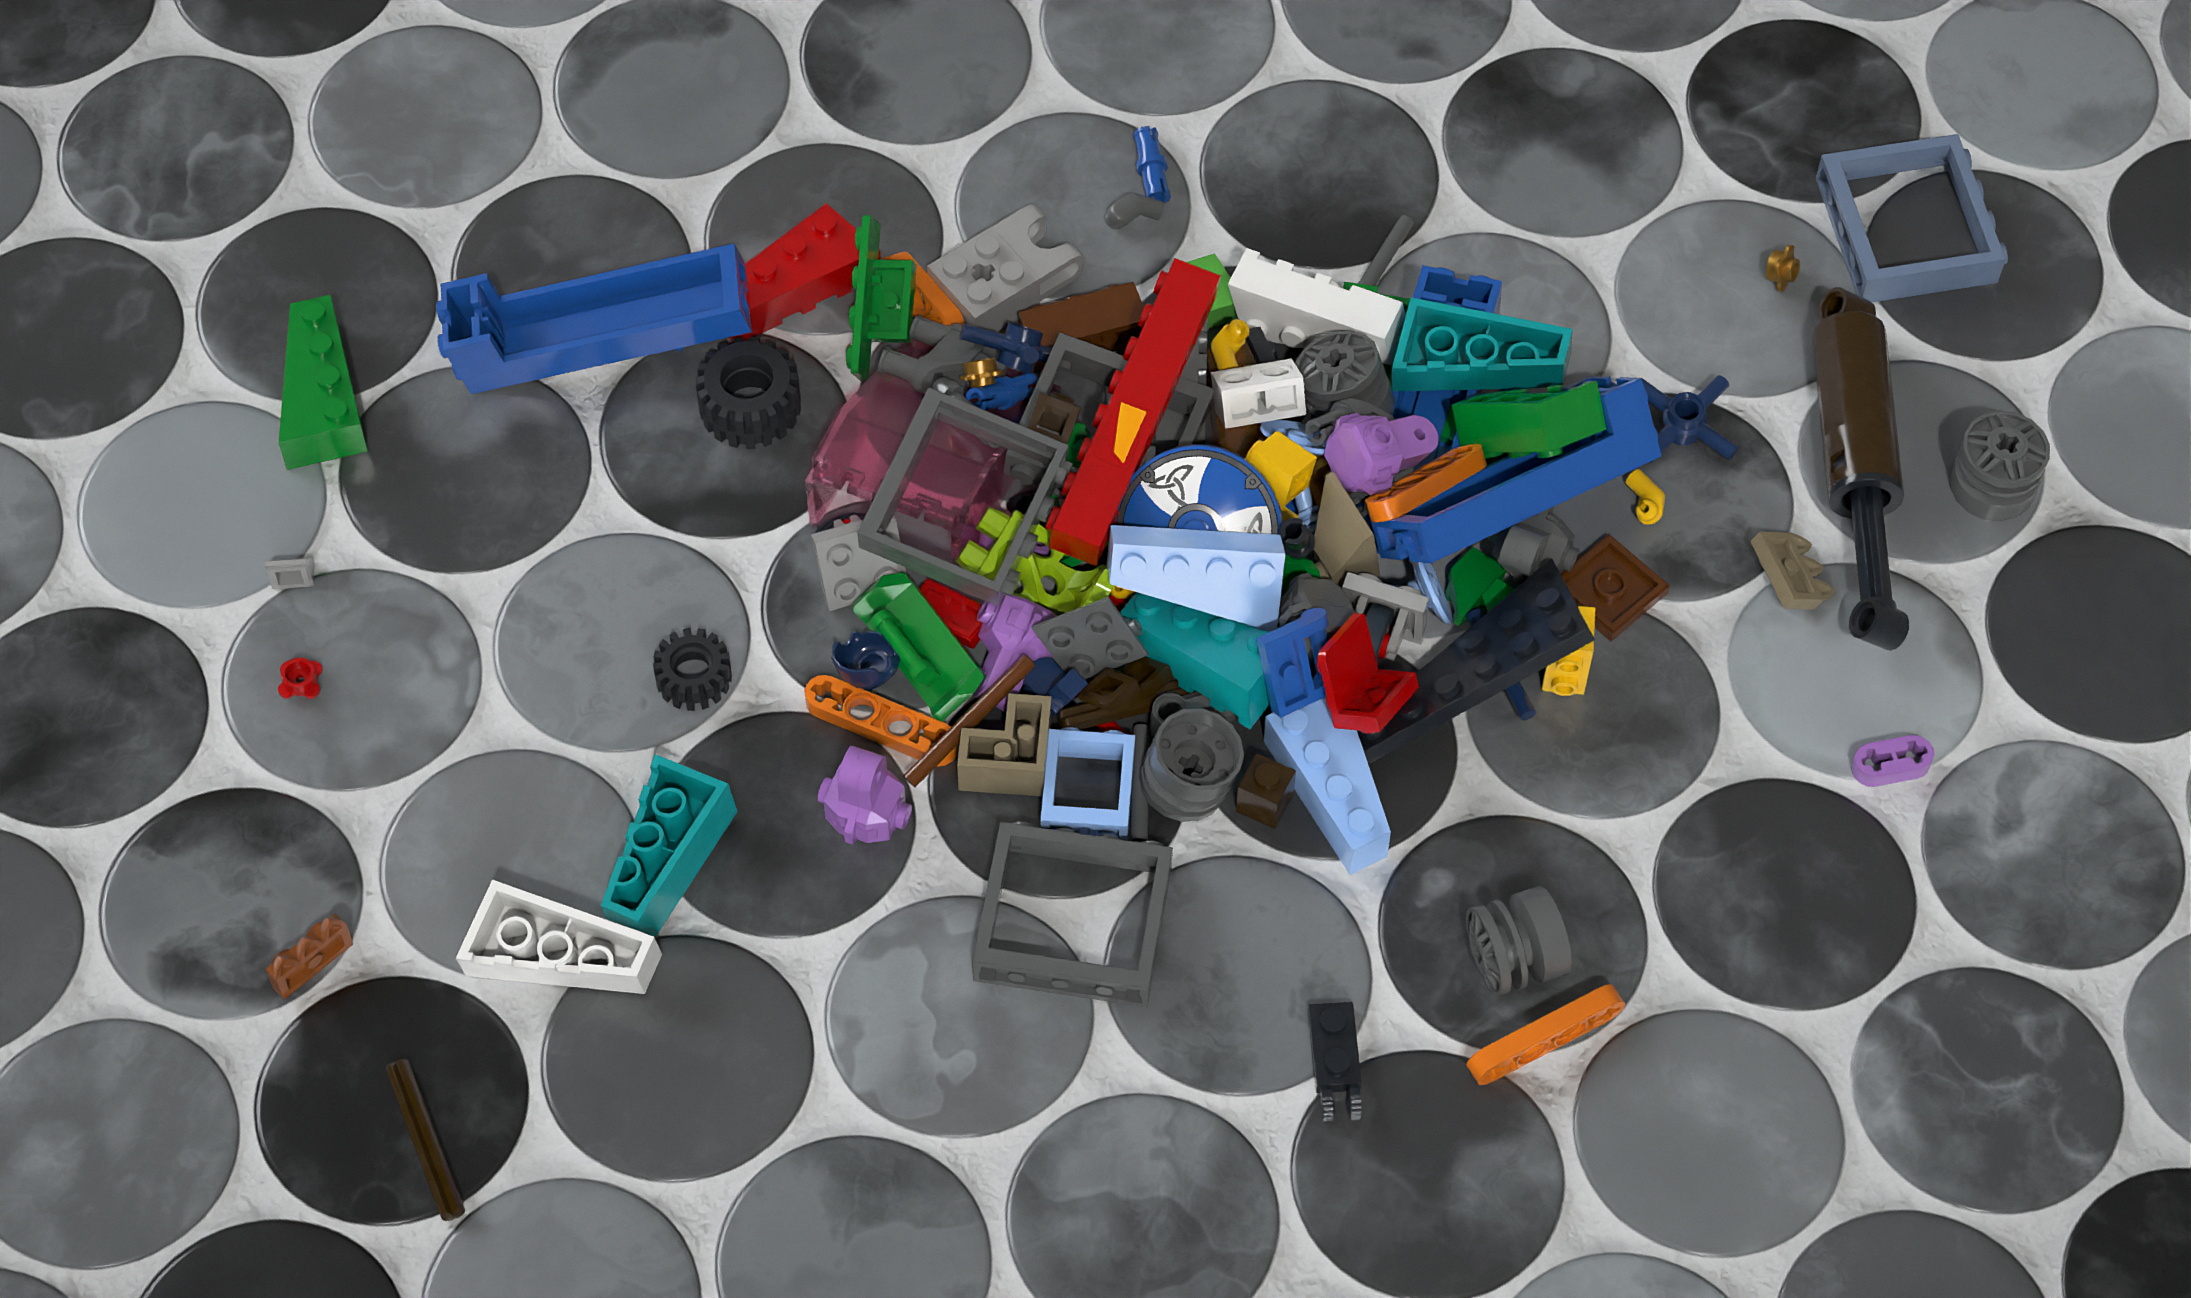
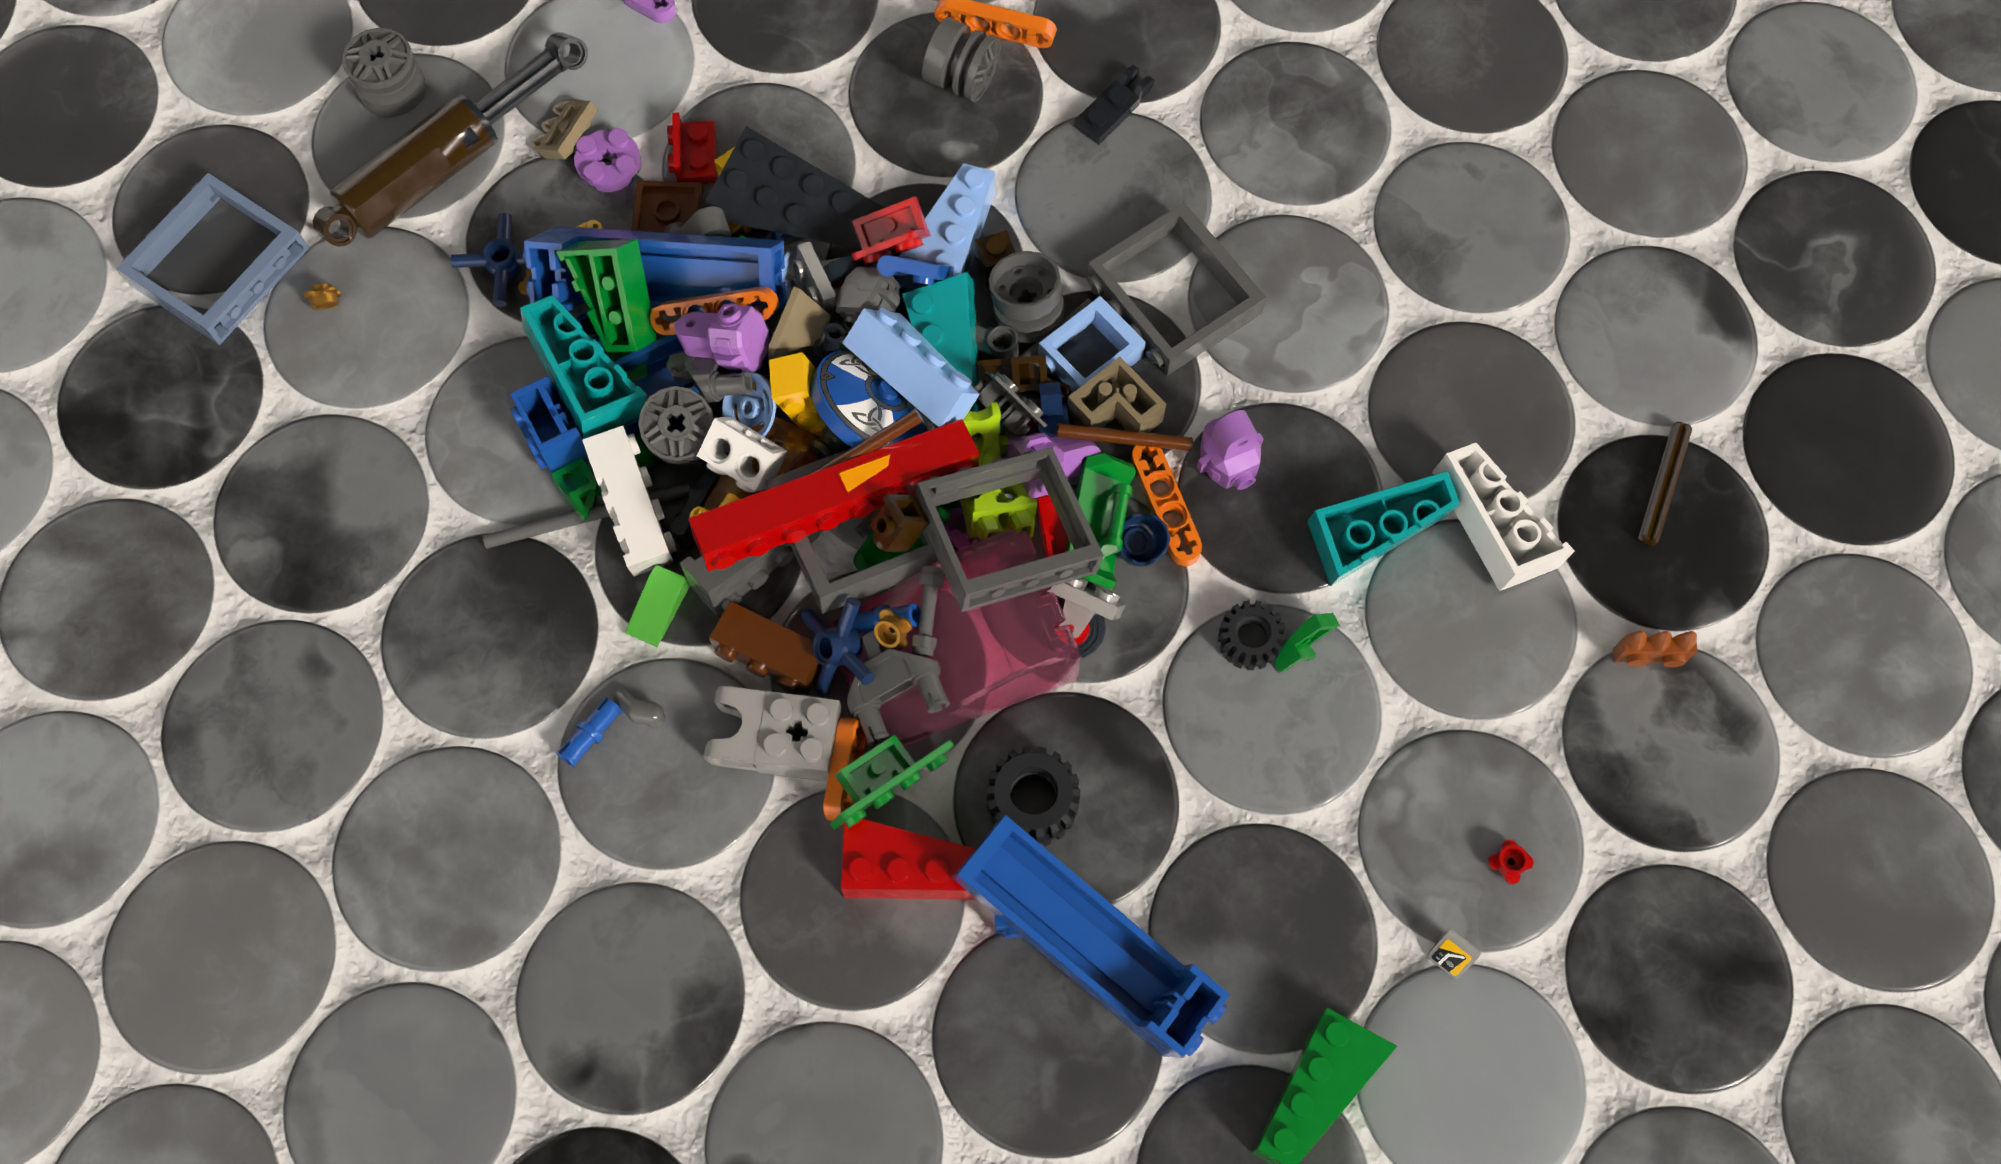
camera: 135 degrees left, 10 degrees up
(636, 702) = (1299, 644): none -> green slope
(1153, 448) = (878, 439): none -> reddish brown bar
(1660, 655) = (692, 150): none -> red bracket
(1724, 563) = (605, 143): none -> medium lavender plate

